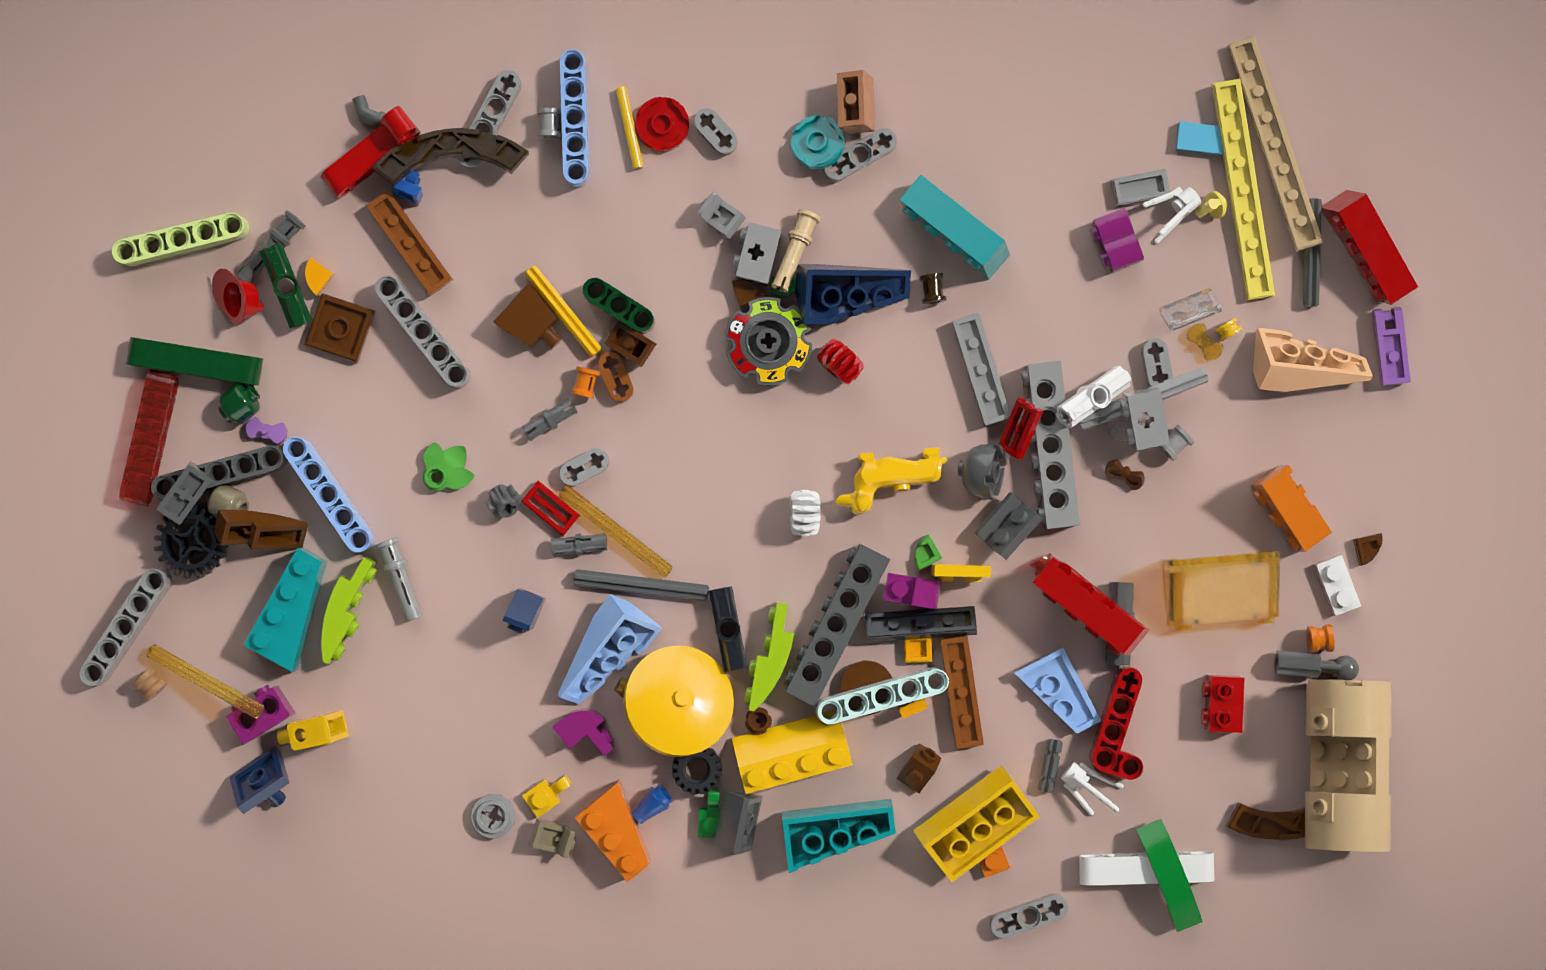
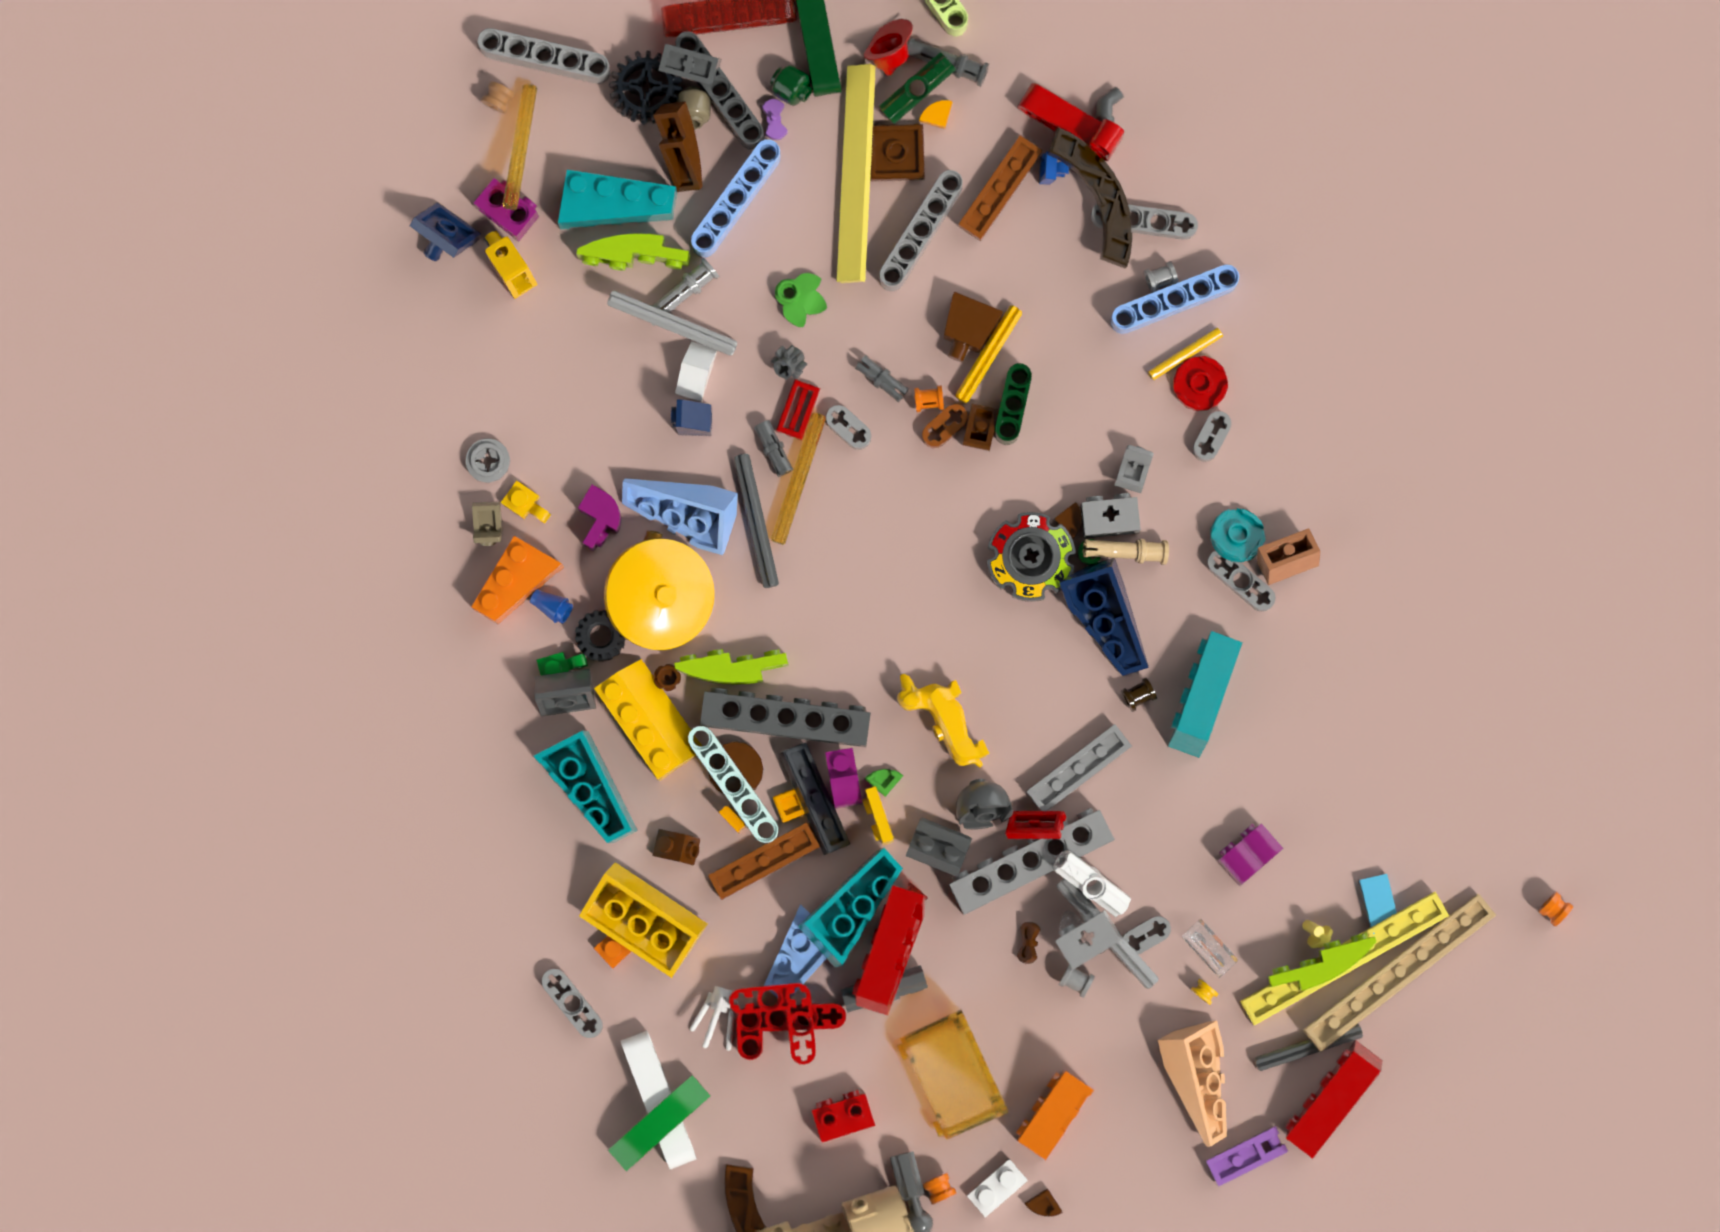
camera: 75 degrees right, 5 degrees down
(346, 372) = (856, 173): none -> light yellow tile
(425, 597) = (672, 323): none -> light grey axle
(479, 590) = (695, 371): none -> white slope
(732, 646) = (728, 627): black piece -> none
(804, 513) = (880, 649): white gear -> none
(840, 361) = (1036, 631): red gear -> none
(1038, 633) = (845, 913): none -> teal wedge
(1050, 766) = (723, 972): dark grey axle -> none
(1103, 721) = (784, 1003): none -> red beam
(1140, 187) = (1309, 859): light grey tile -> none
(1184, 204) = (1308, 906): white plant -> none
(1198, 335) = (1188, 965): clear yellow piece -> none
(1247, 200) = (1334, 961): none -> lime slope

